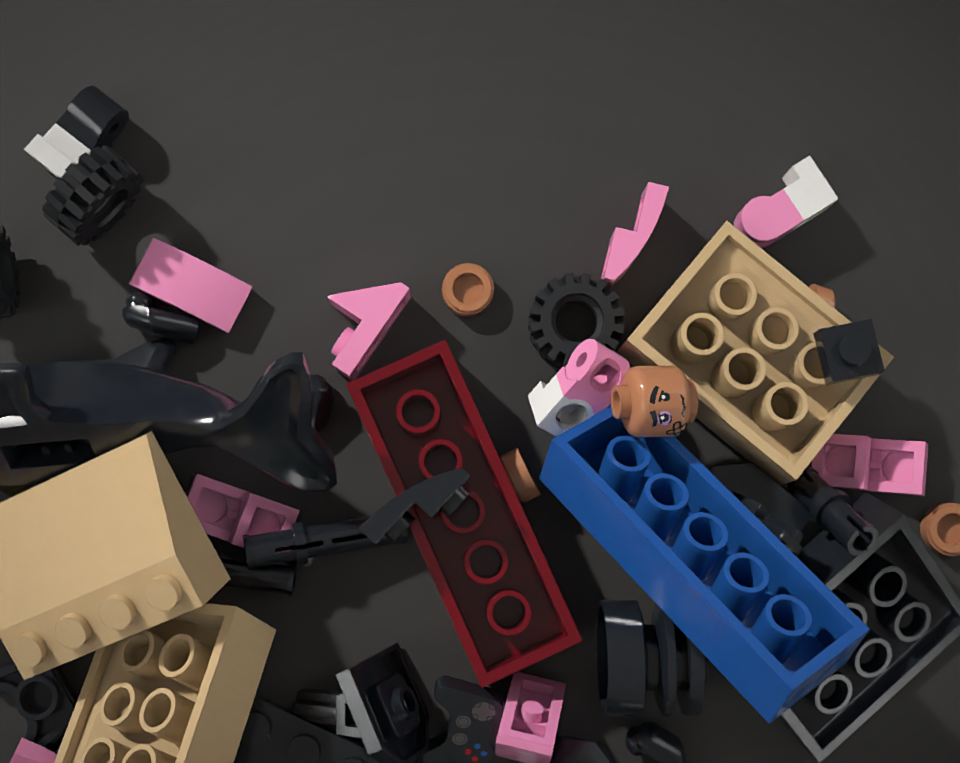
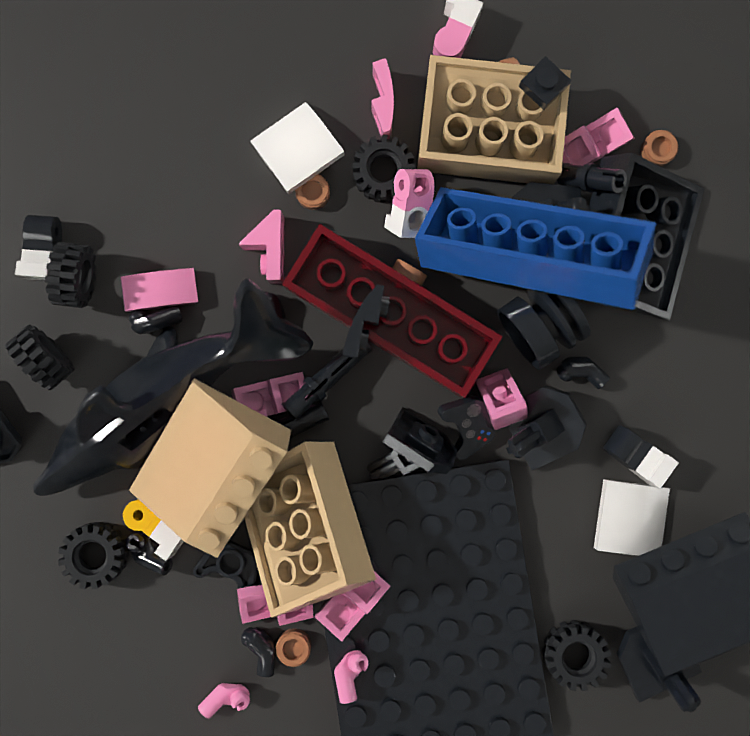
camera: 25 degrees left, 5 degrees up
(485, 223) = (297, 147): none -> white slope
(655, 401) = (457, 179): nougat head -> none

